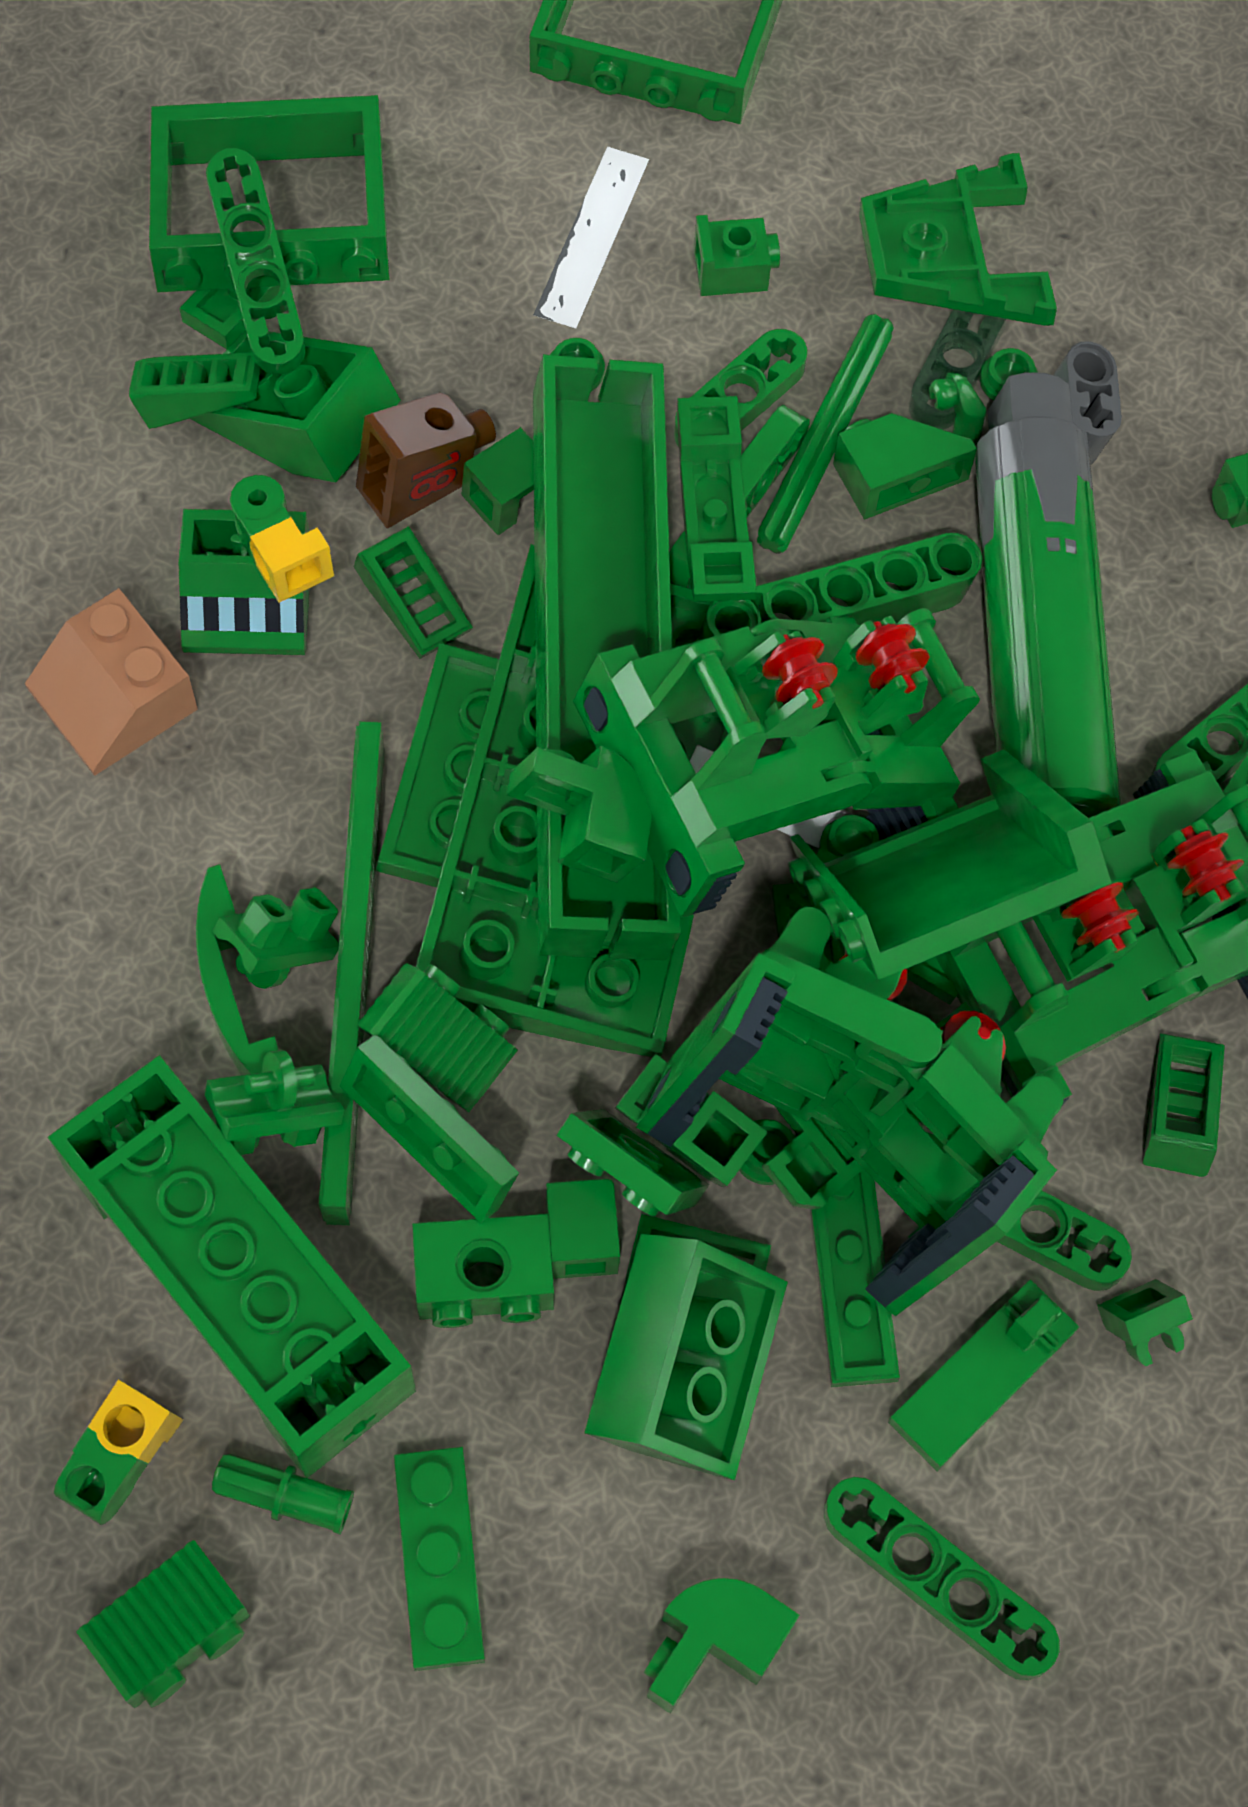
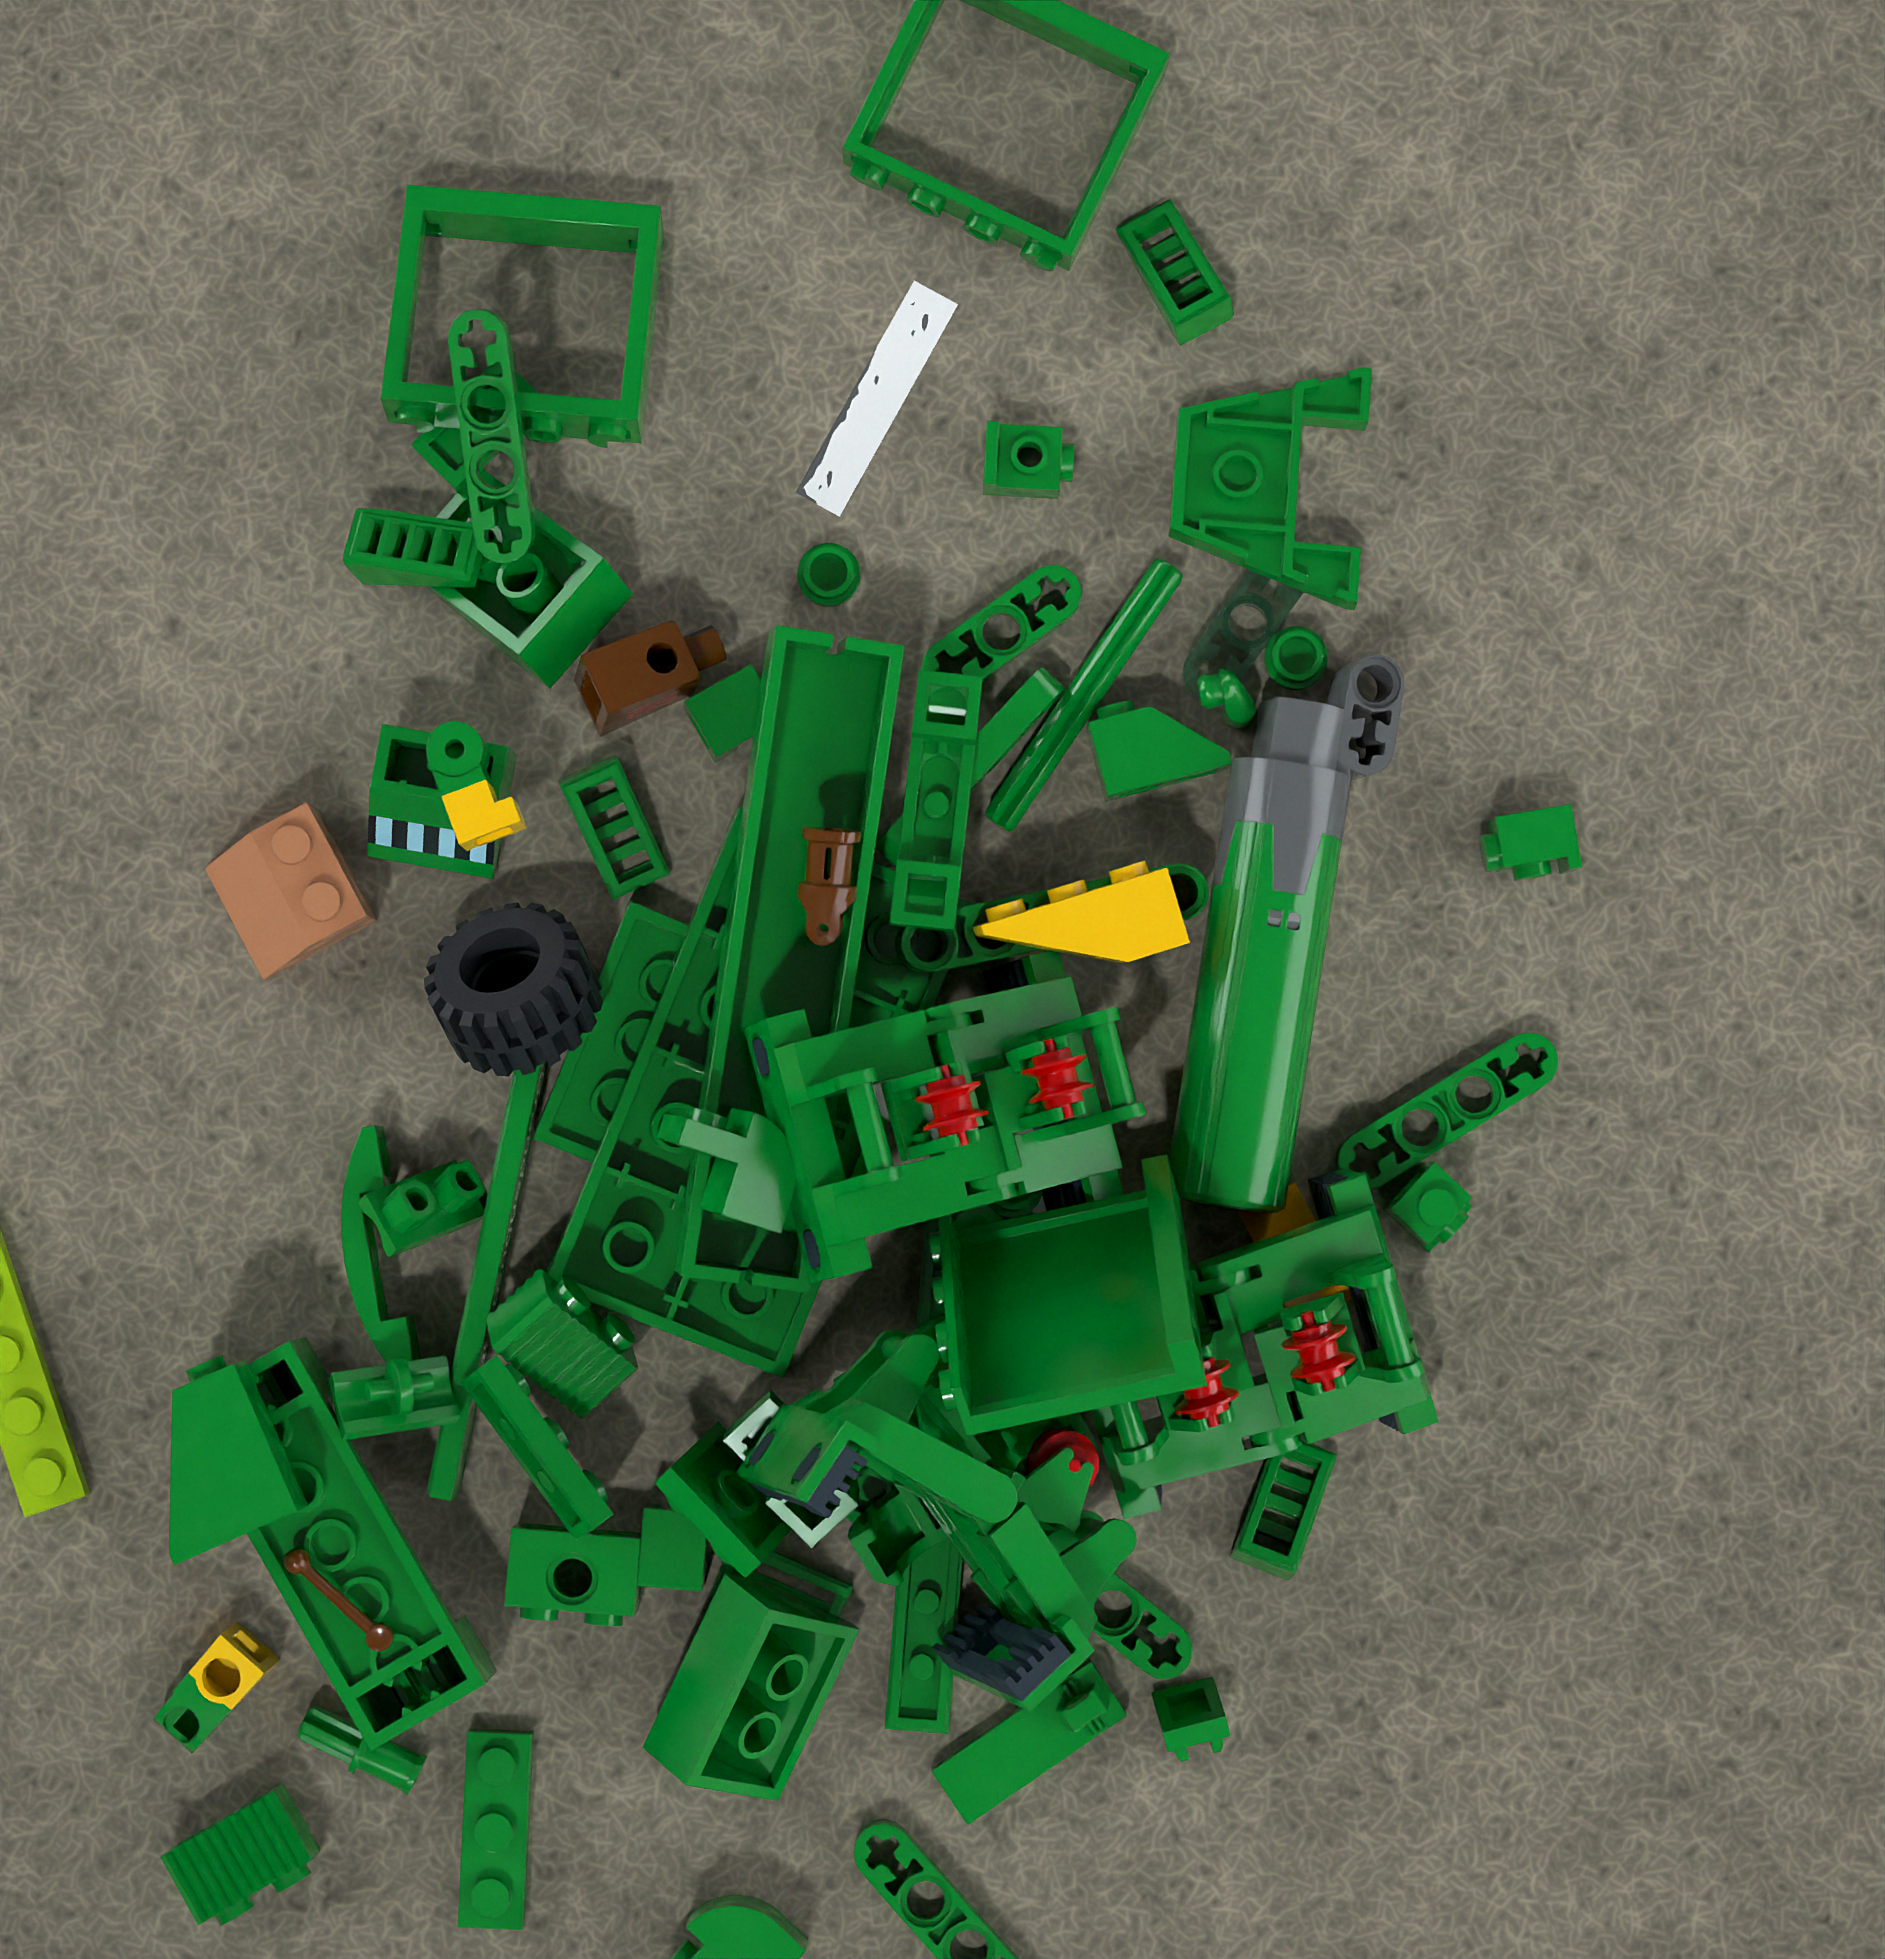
camera: 10 degrees right, 20 degrees up
(106, 1173) = (224, 1461): none -> green slope
(289, 1330) = (378, 1635): none -> reddish brown hinge
(341, 718) = (513, 989): none -> black tyre
(633, 572) = (826, 896): none -> reddish brown piece
(849, 137) = (1213, 302): none -> green slope
(888, 575) = (1110, 923): none -> yellow slope

